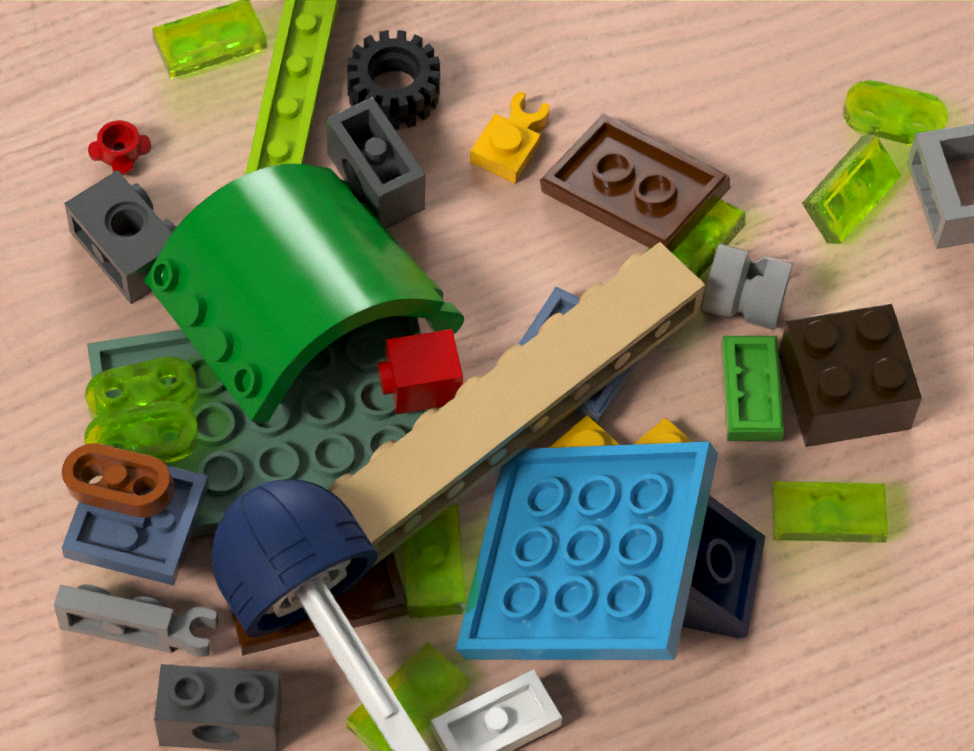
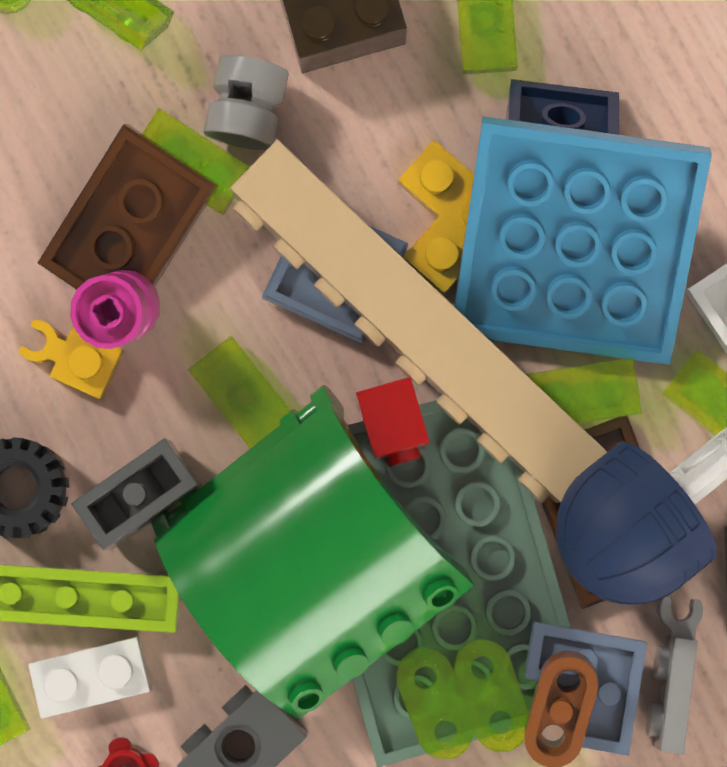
camera: 90 degrees left, 25 degrees up
(210, 128) = (89, 677): none -> white plate
(470, 262) = (240, 391): none -> clear neon green plate
(552, 152) = (115, 308): none -> dark pink wheel
(752, 388) = (355, 95): bright green plate -> none

